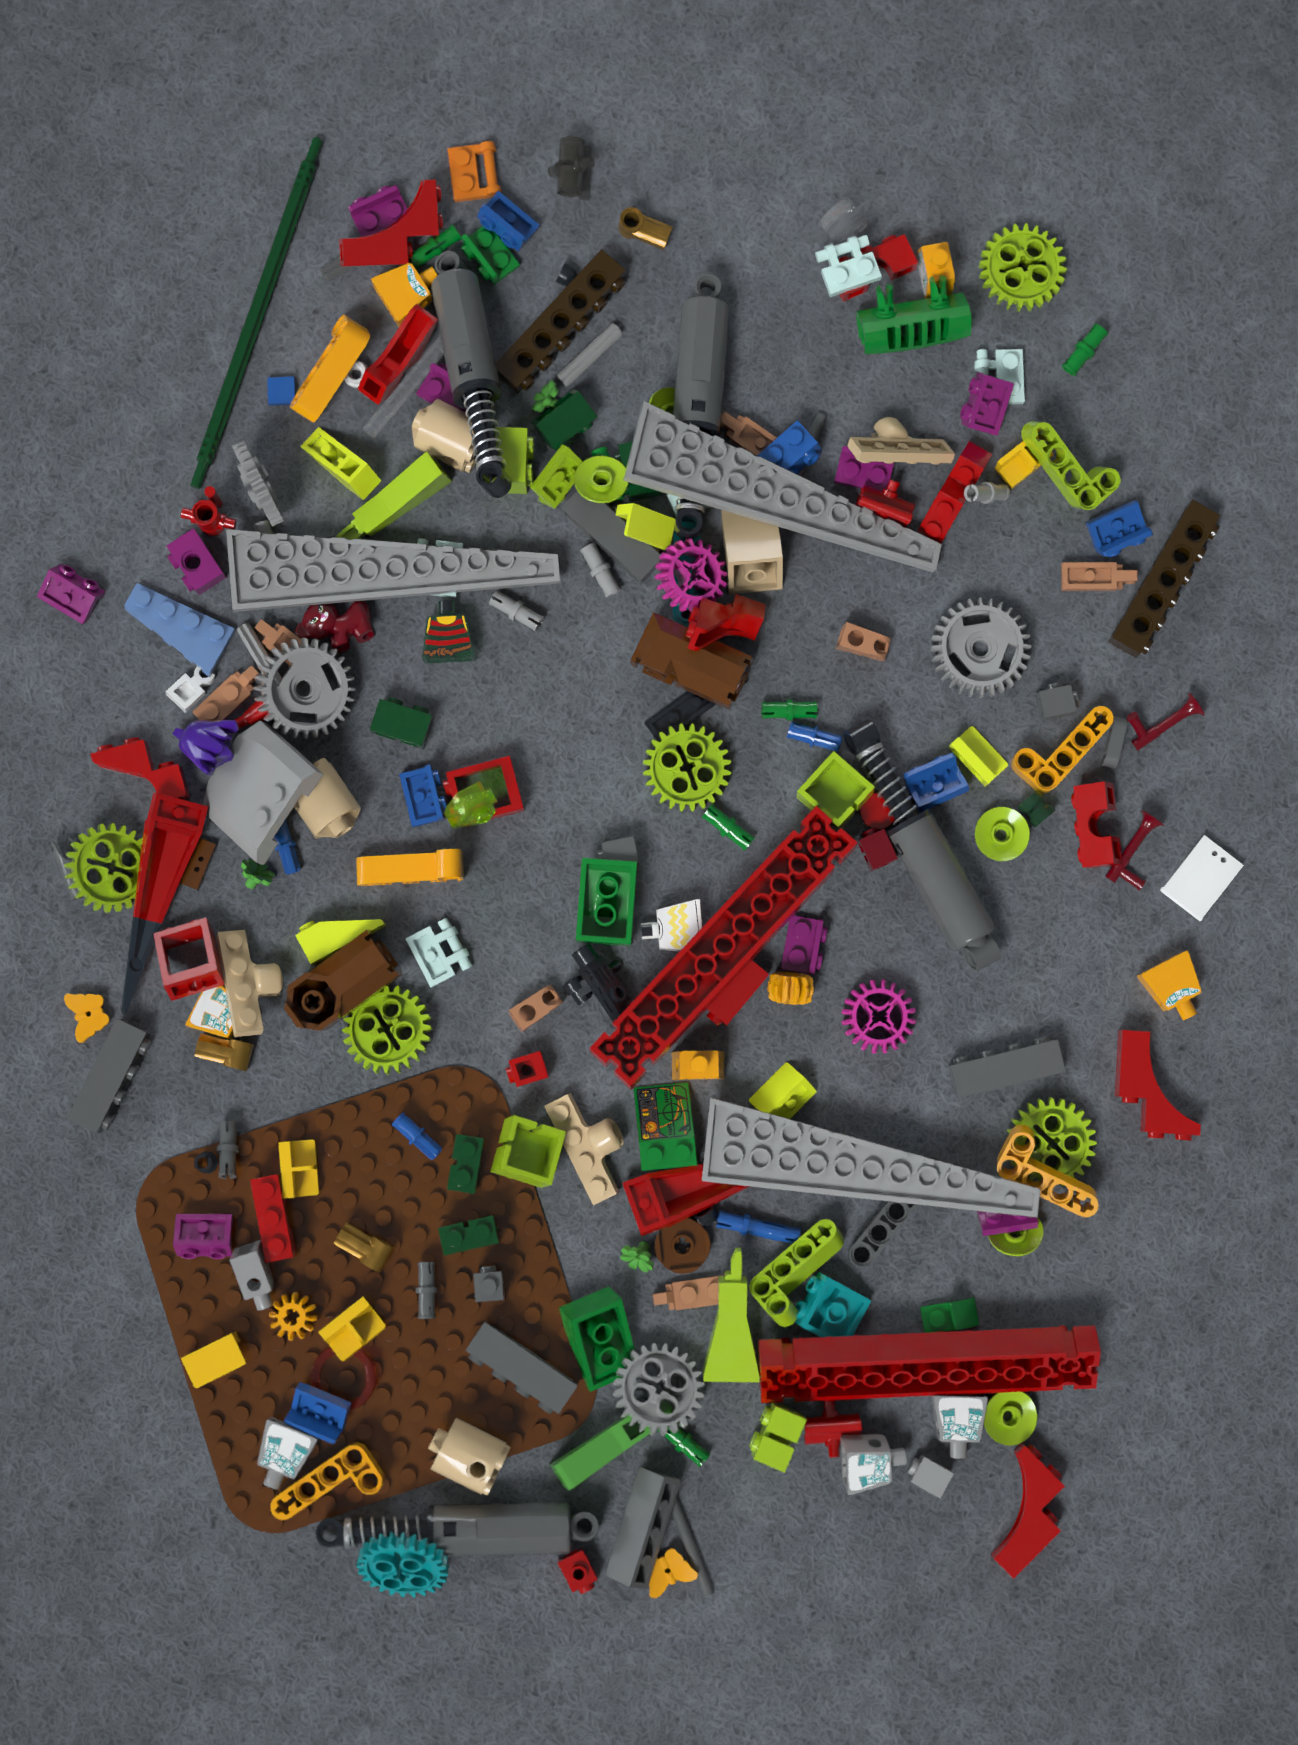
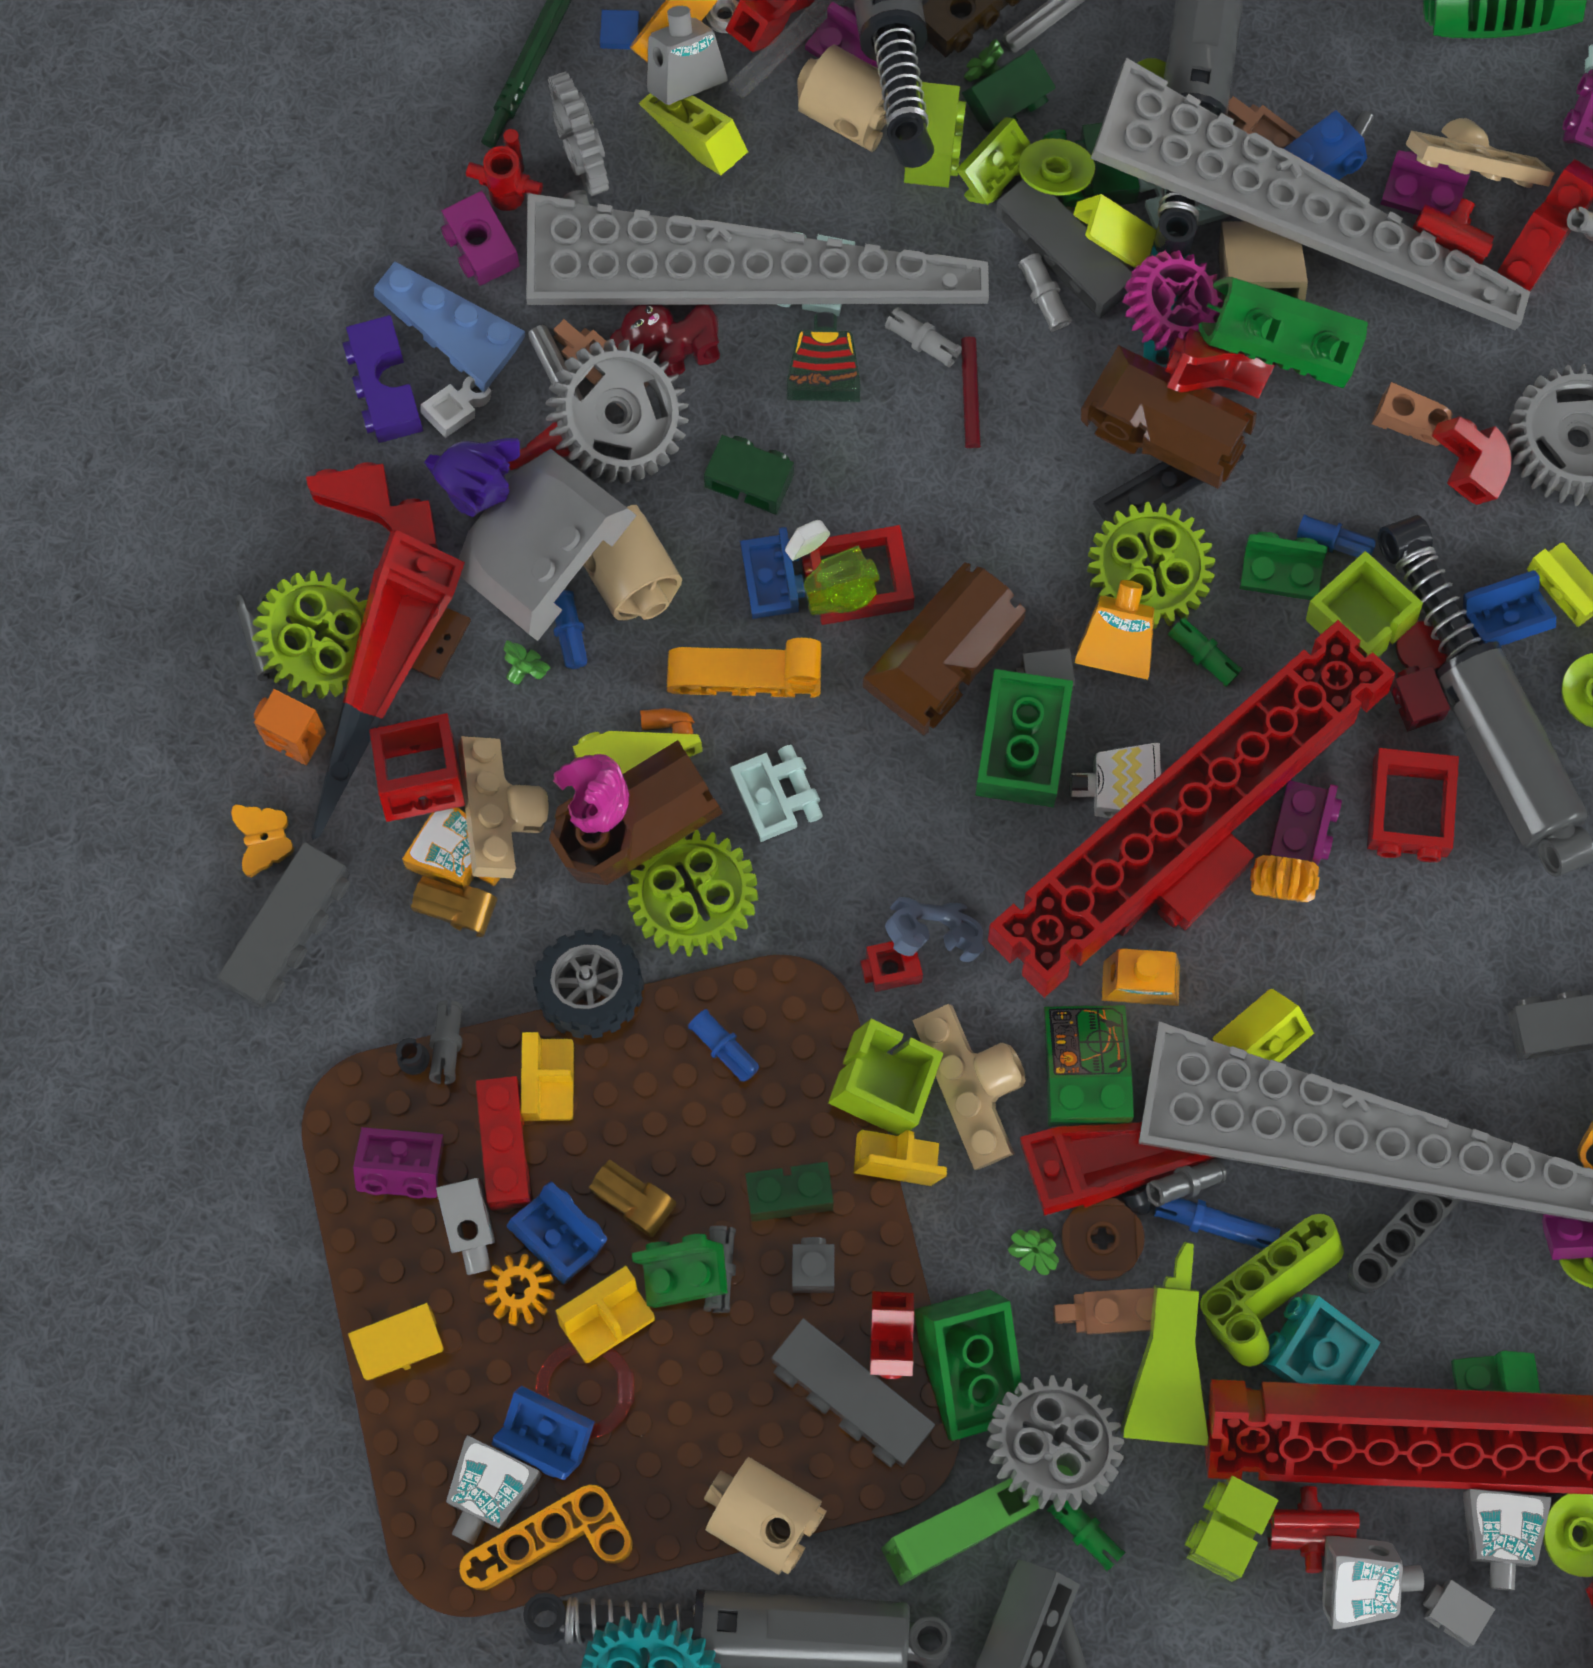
camera: 10 degrees right, 10 degrees down
(70, 592) = (300, 266): magenta bracket -> none
(96, 937) = (289, 726): none -> orange brick
(127, 652) = (390, 409): none -> dark purple arch
(227, 696) = (510, 417): nougat hinge -> none
(315, 978) = (599, 794): none -> dark pink hair
(315, 1275) = (558, 1232): none -> blue bracket
(328, 417) = (683, 58): none -> light grey torso
(344, 1111) = (594, 1017): none -> black wheel
(360, 904) = (667, 718): none -> orange arm
(401, 495) = (778, 169): lime piece -> none
(402, 1296) = (682, 1270): none -> green bracket
(444, 774) = (807, 539): none -> white tile
(468, 1153) = (793, 1088): dark green piece -> none
(532, 1046) = (911, 935): none -> sand blue helmet
(535, 1007) = (909, 878): nougat leg -> none
(540, 1203) = (898, 1158): none -> yellow panel
(545, 842) = (944, 648): none -> reddish brown brick
(545, 1327) = (892, 1334): none -> red brick
(553, 650) = (970, 392): none -> dark red bar
(600, 980) = (1004, 844): black piece -> none
(667, 823) = (1119, 634): none -> light orange torso
(735, 1204) = (1186, 1182): none -> dark grey pin
(768, 595) = (1285, 331): none -> green piece
(778, 761) = (1282, 566): none -> green bracket
(789, 710) = (1301, 499): green pin -> none
(883, 898) = (1419, 766): none -> red window
(889, 1026) = (1419, 943): dark pink gear -> none
(913, 673) = (1482, 461): none -> red brick

